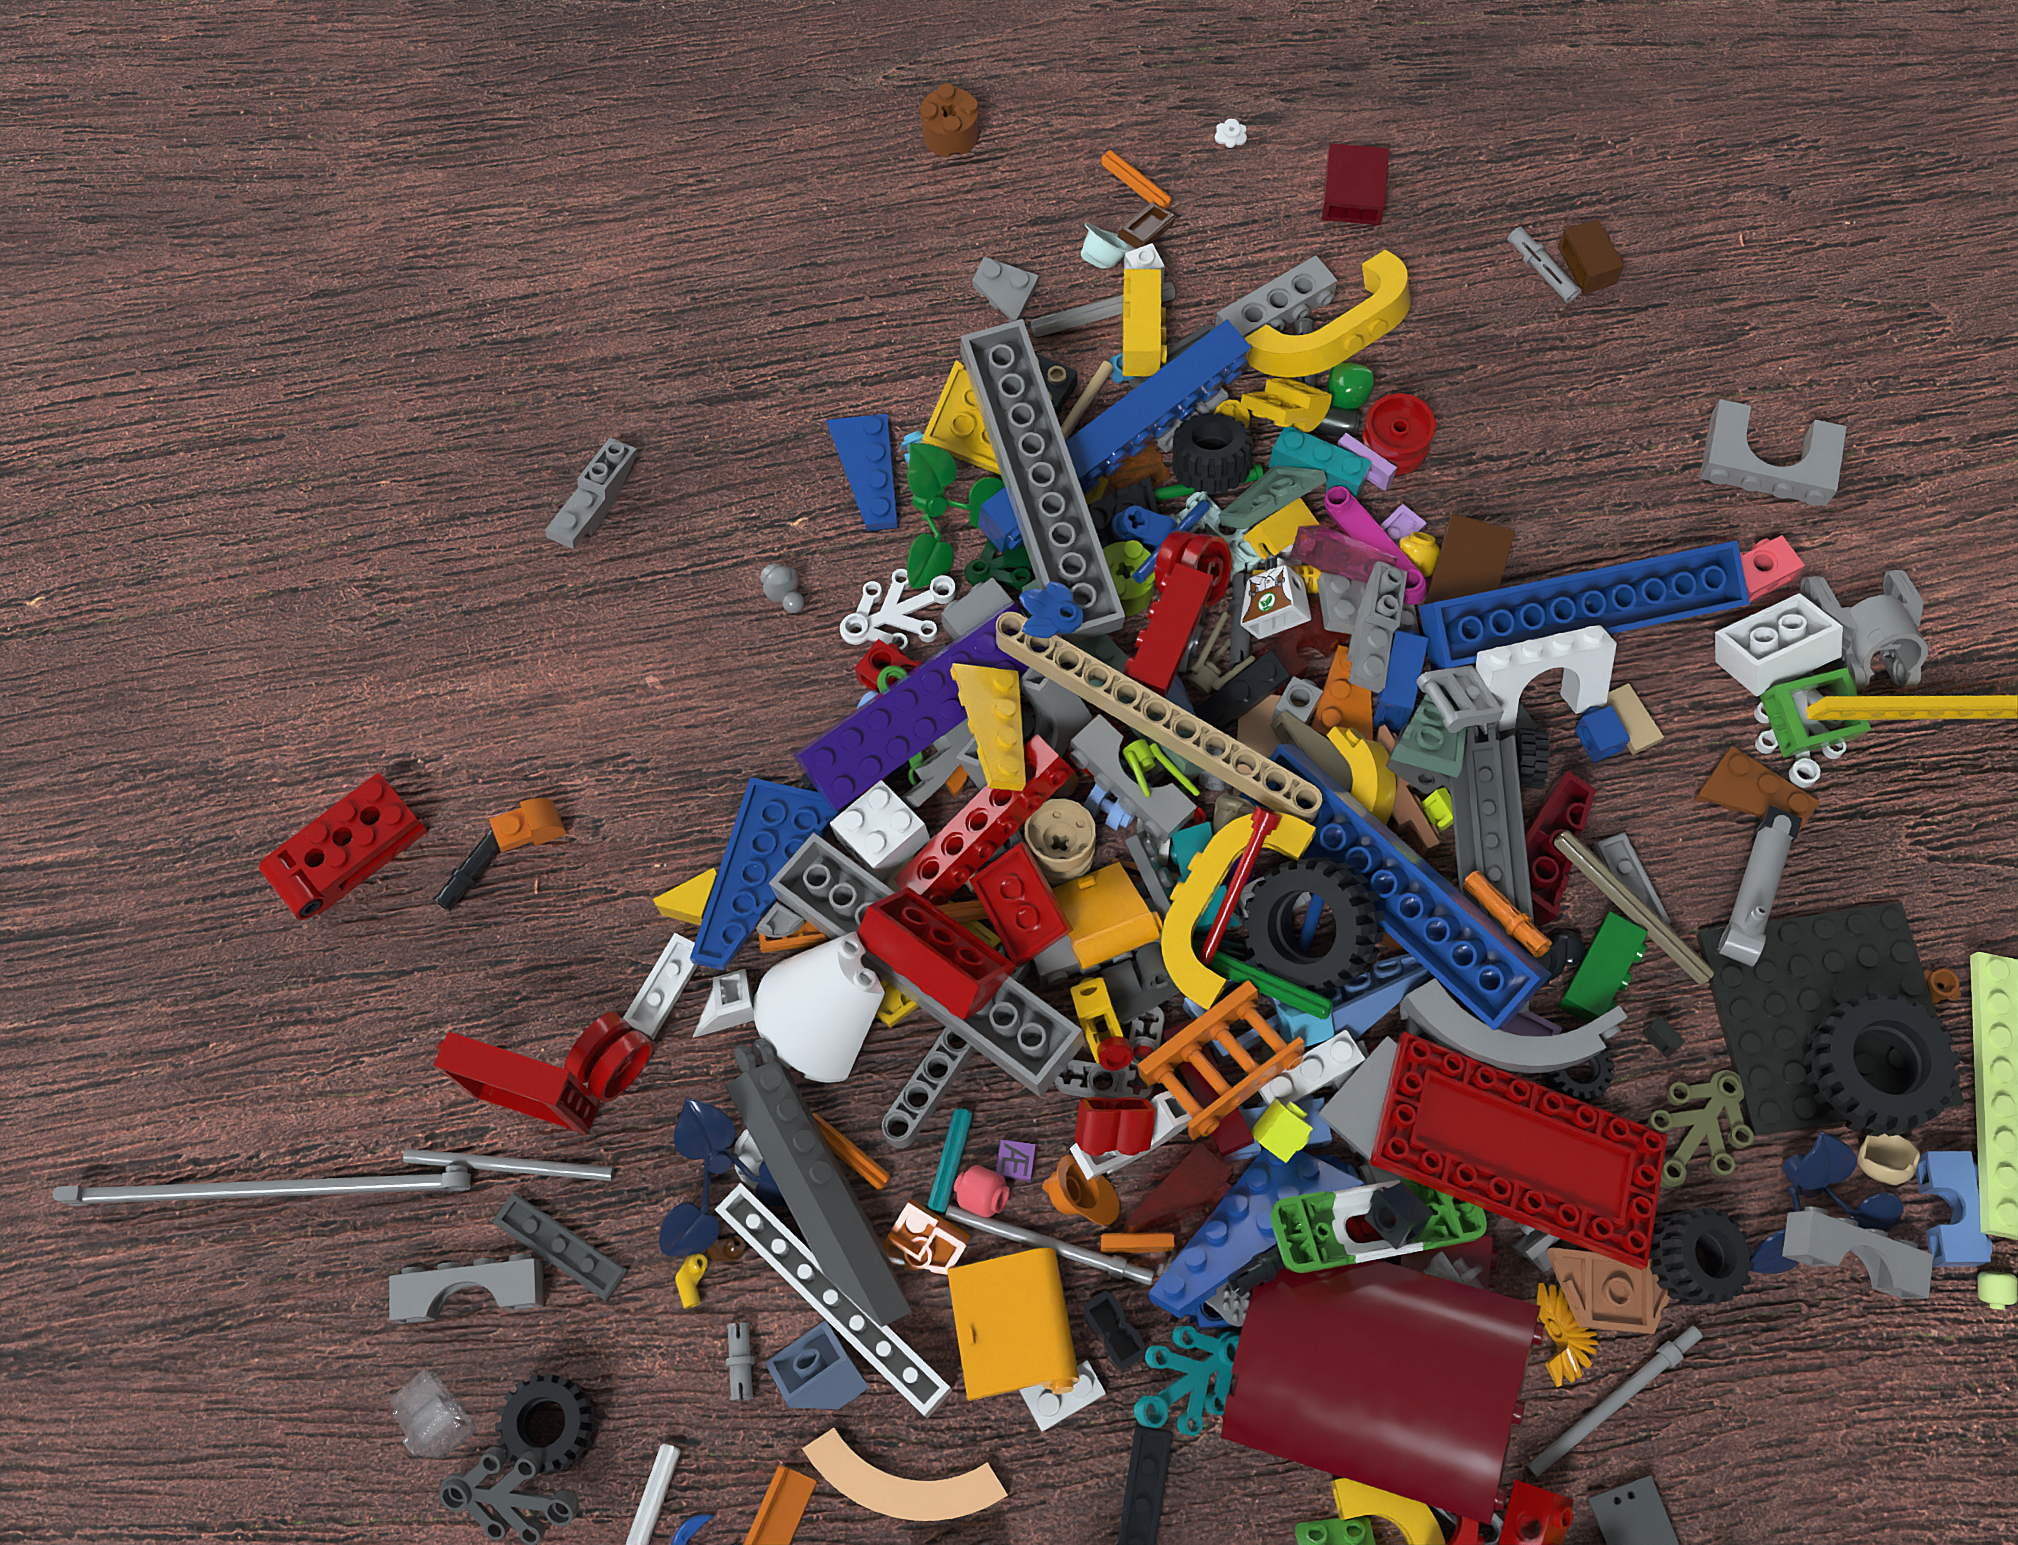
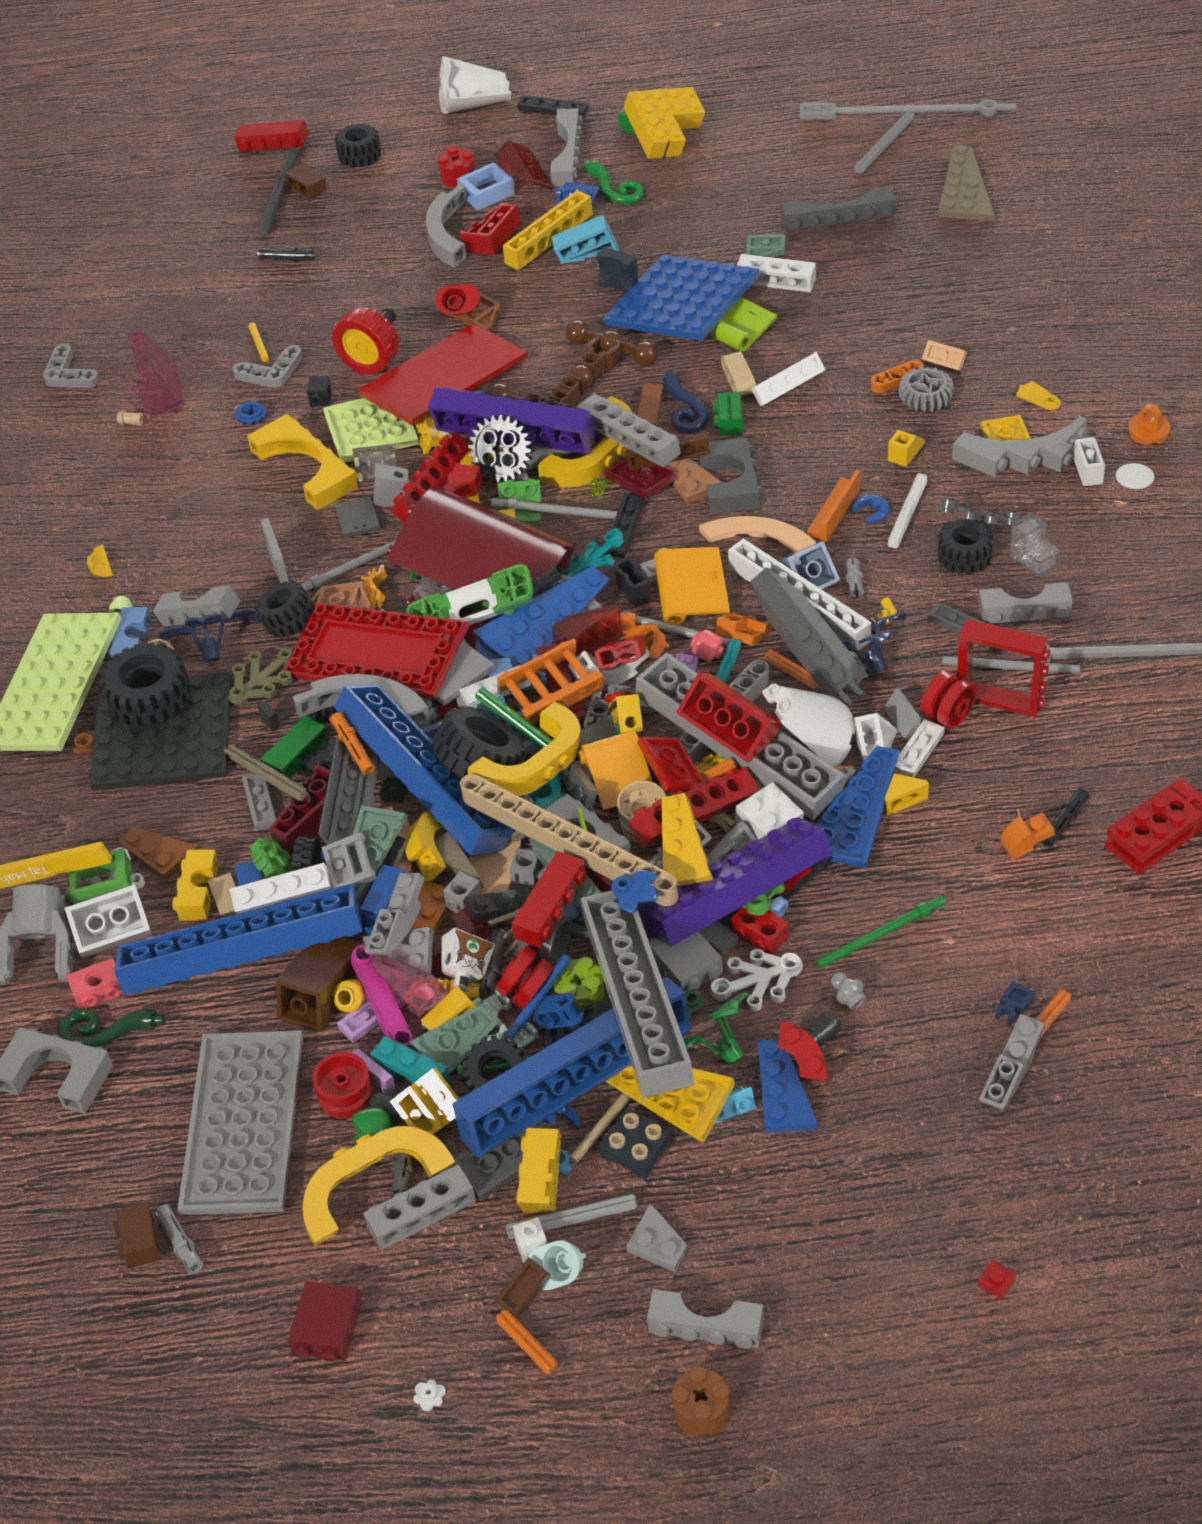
camera: 175 degrees left, 20 degrees down
(538, 572) = (1054, 1008): none -> orange axle
(578, 584) = (1014, 1000): none -> dark blue plate
(641, 263) = (996, 1279): none -> red plate
(682, 1053) = (902, 714): none -> light grey slope
(683, 714) = (920, 911): none -> green bar
(818, 535) = (823, 1028): none -> pearl dark grey piece
(838, 487) = (805, 1051): none -> red brick
(915, 197) = (737, 1326): none -> light grey arch
(1263, 824) = (502, 765): red piece -> none
(1282, 1129) = (518, 651): neon yellow brick -> none
(1347, 1531) = (512, 503): none -> light grey bar
(1398, 1215) = (457, 600): black brick -> none
(1512, 403) = (241, 1123): none -> light grey plate
(1579, 748) = (270, 858): none -> bright green gear
(1678, 700) = (193, 901): none -> yellow arch
(1689, 526) = (133, 1021): none -> dark green plant
(1744, 934) = (201, 751): light grey piece -> none
(1758, 1397) = (274, 551): none -> light grey tile

